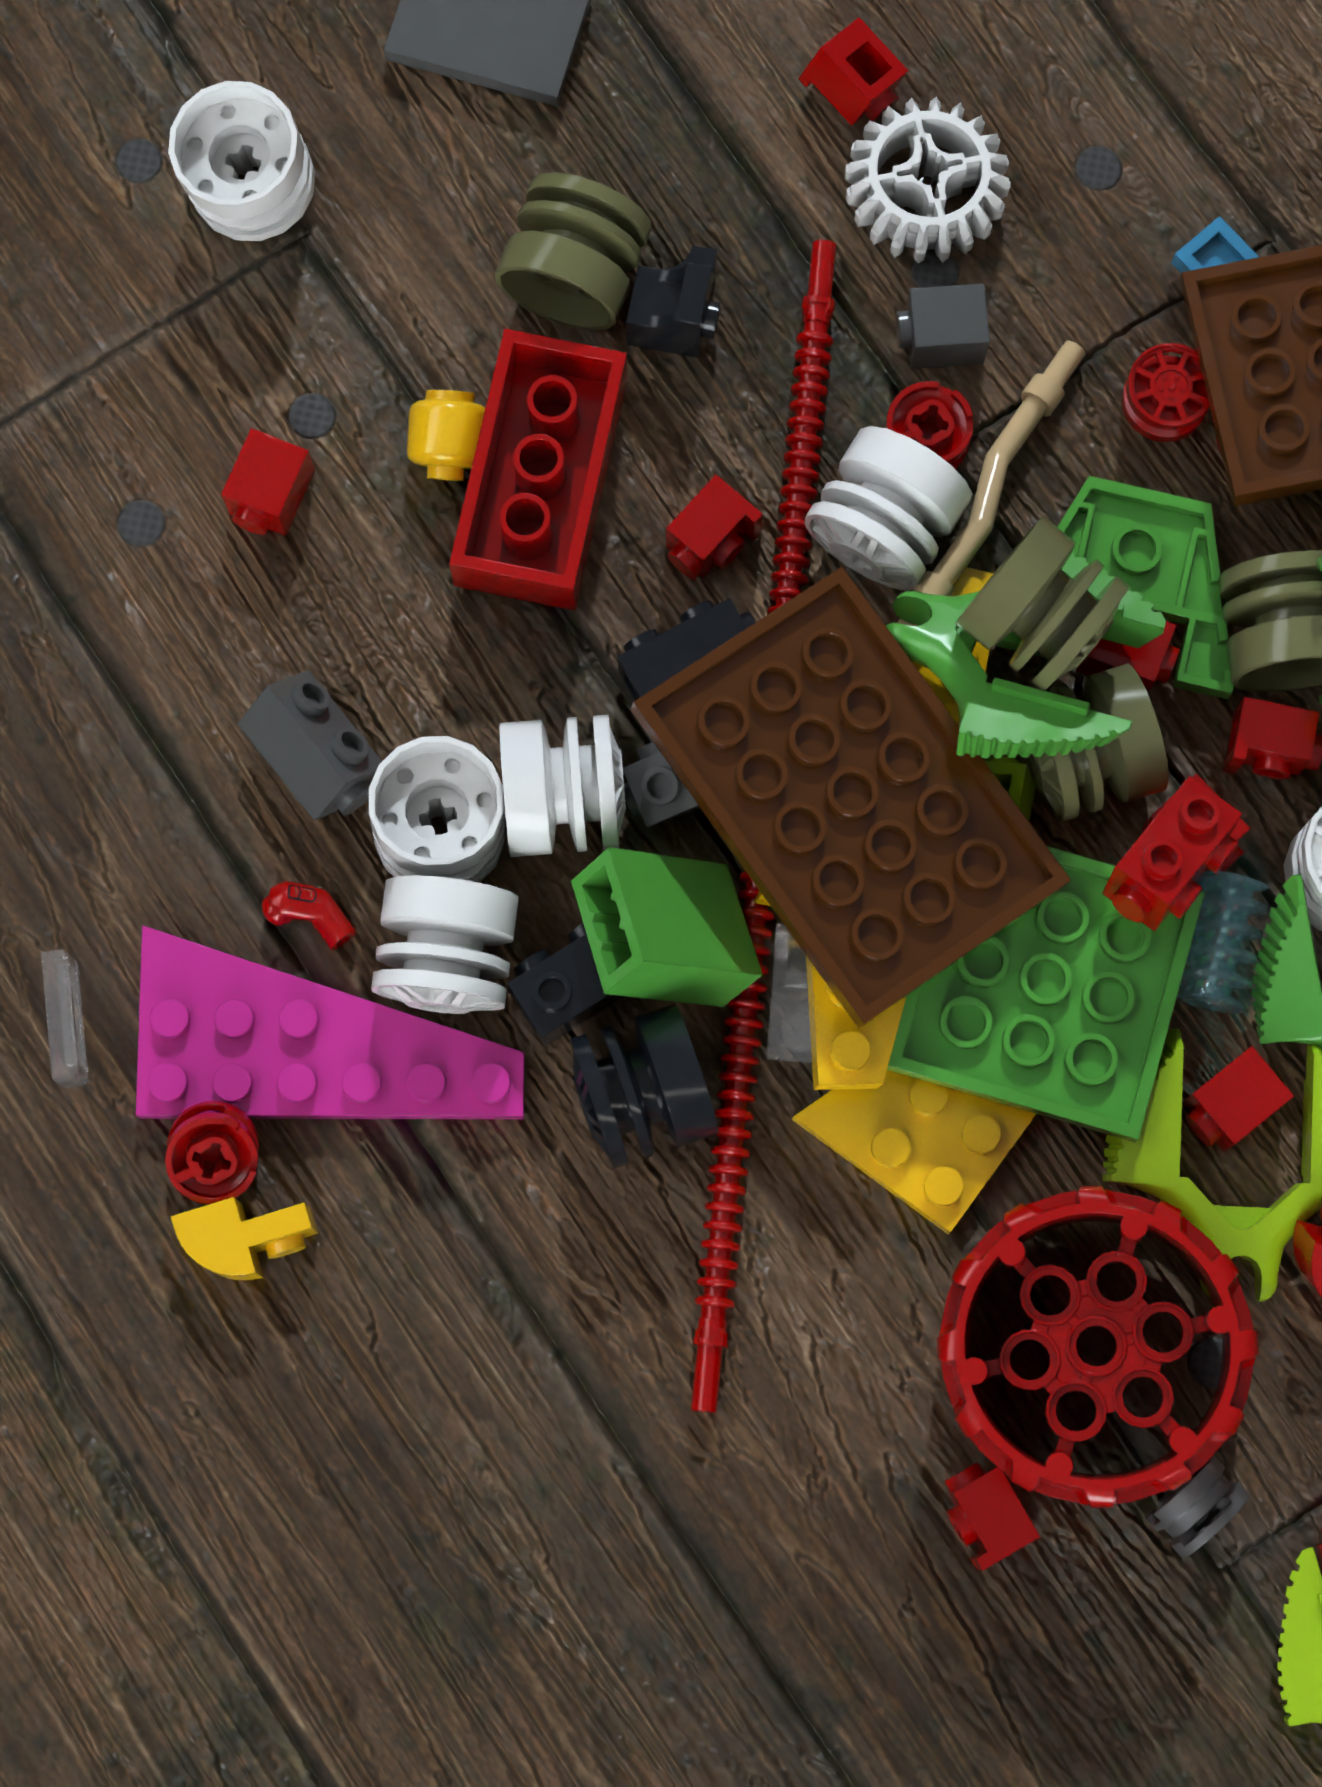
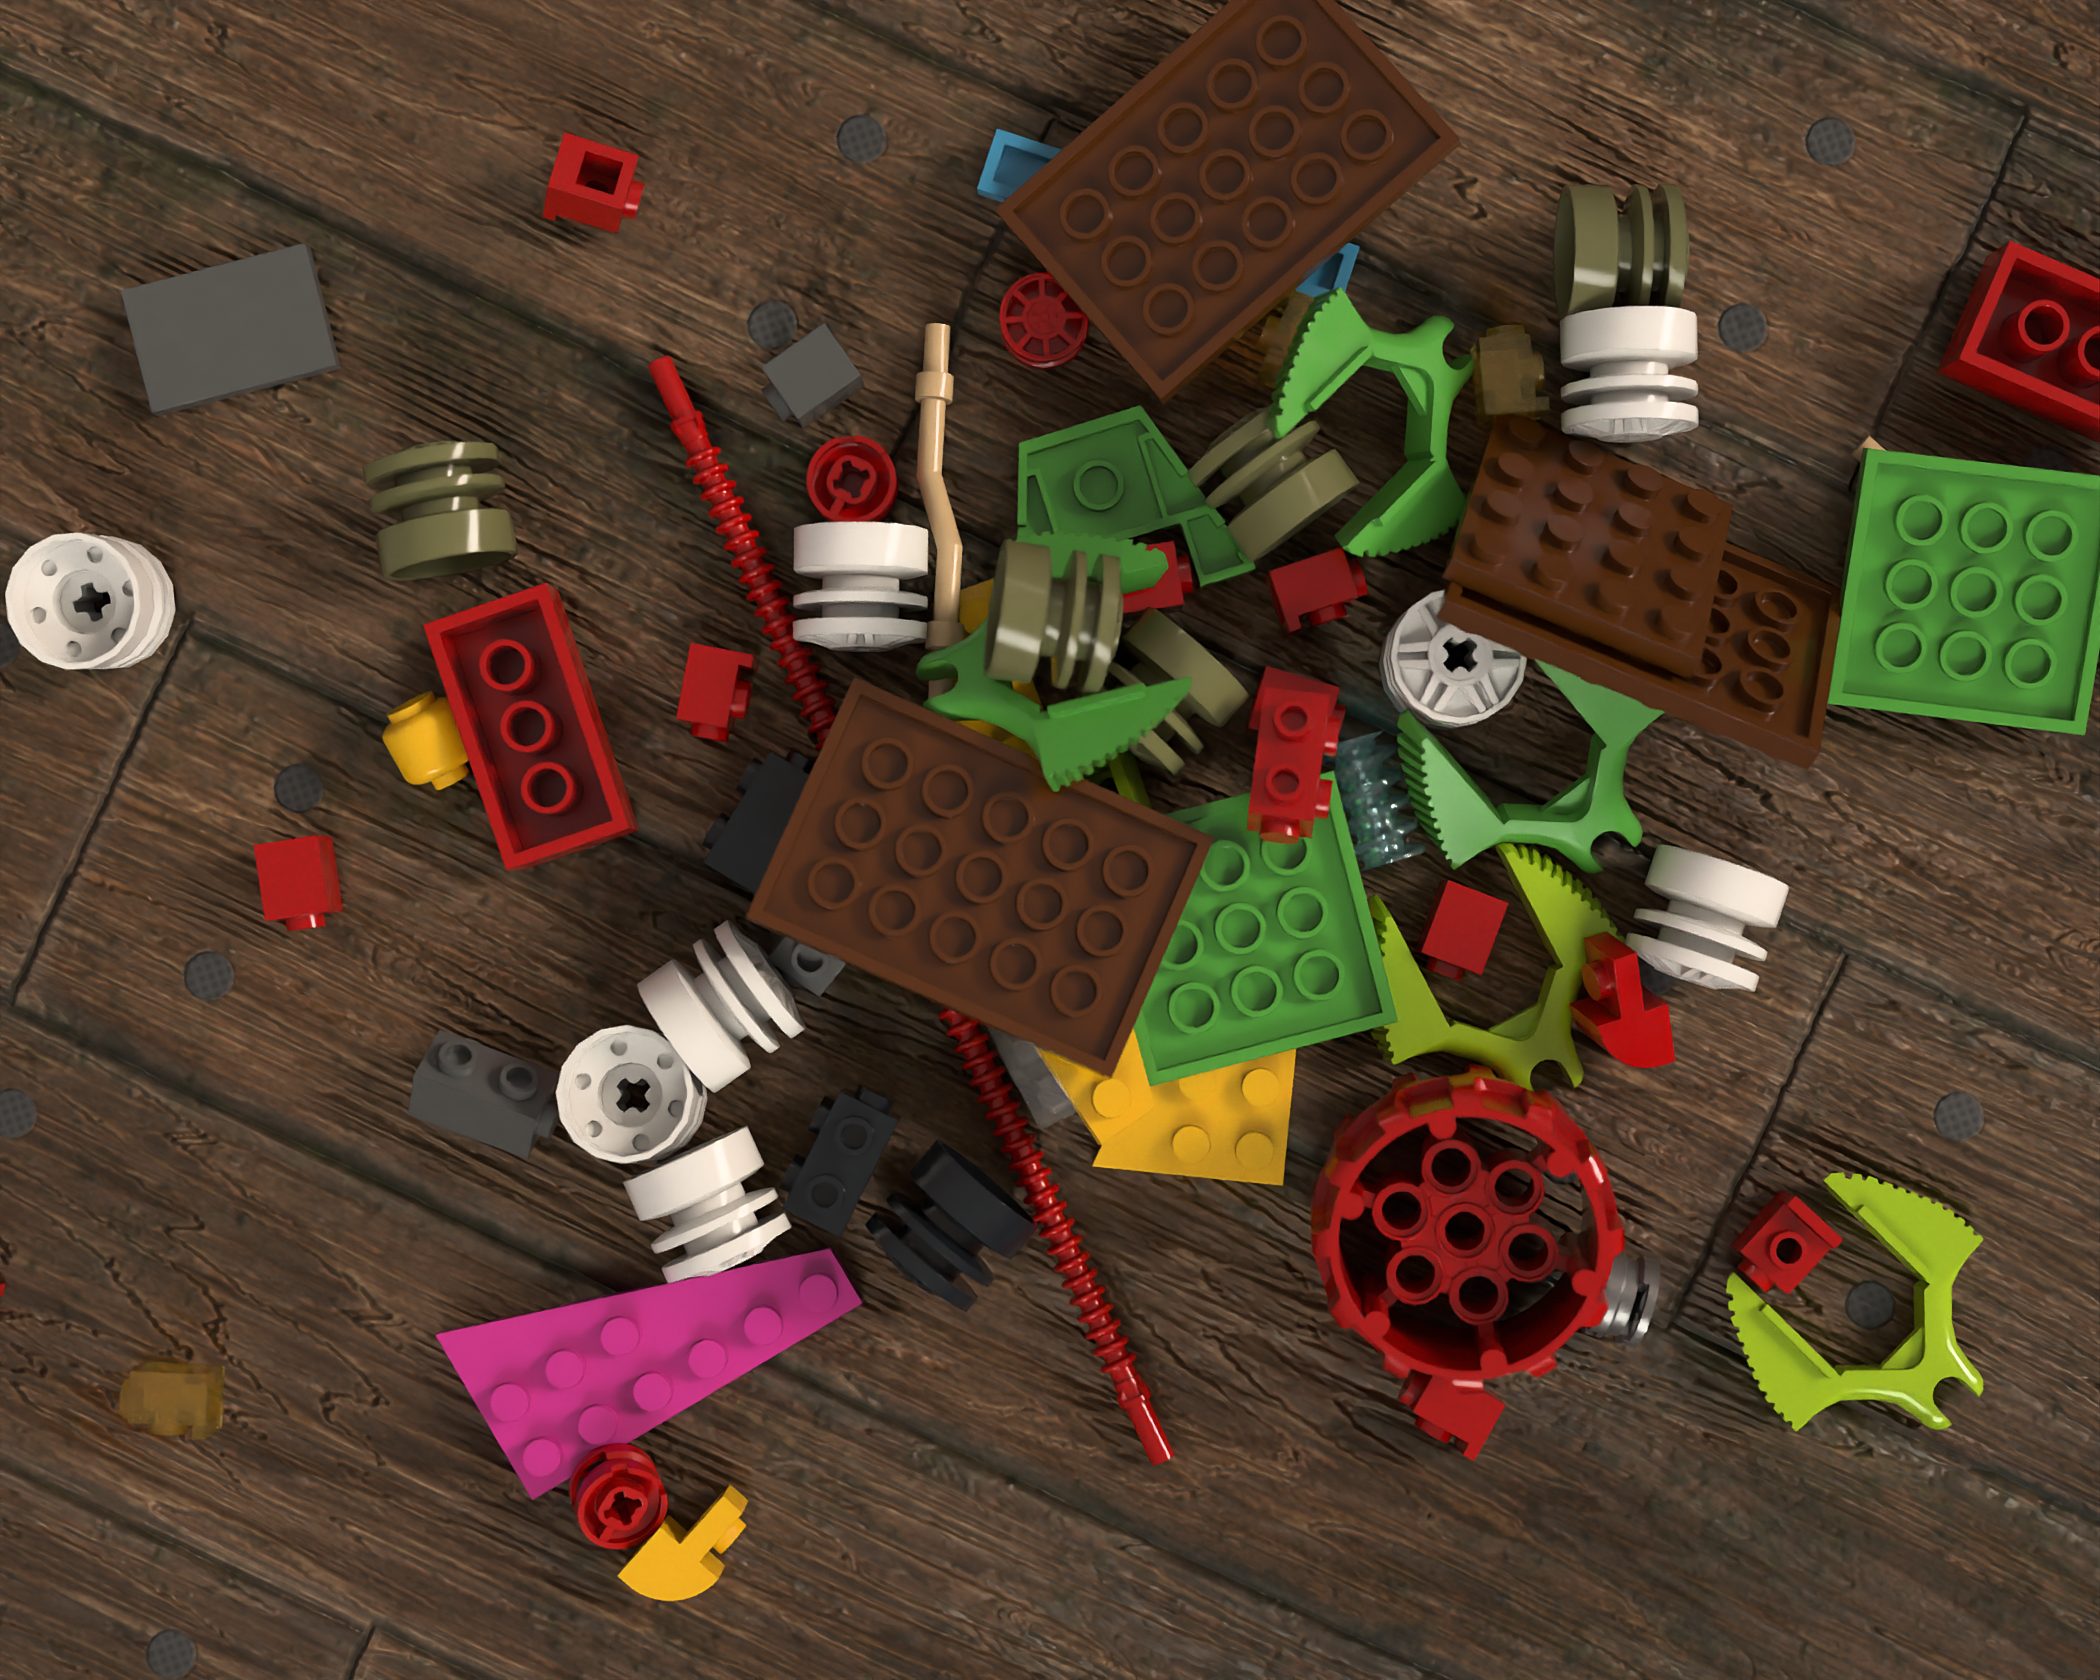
camera: 30 degrees left, 10 degrees up
(64, 1019) = (419, 1456): clear tile -> none
(308, 903) = (566, 1229): red arm -> none
(665, 928) = (889, 1082): bright green brick -> none
(674, 305) = (561, 500): black brick -> none
(971, 164) = (695, 268): white gear -> none

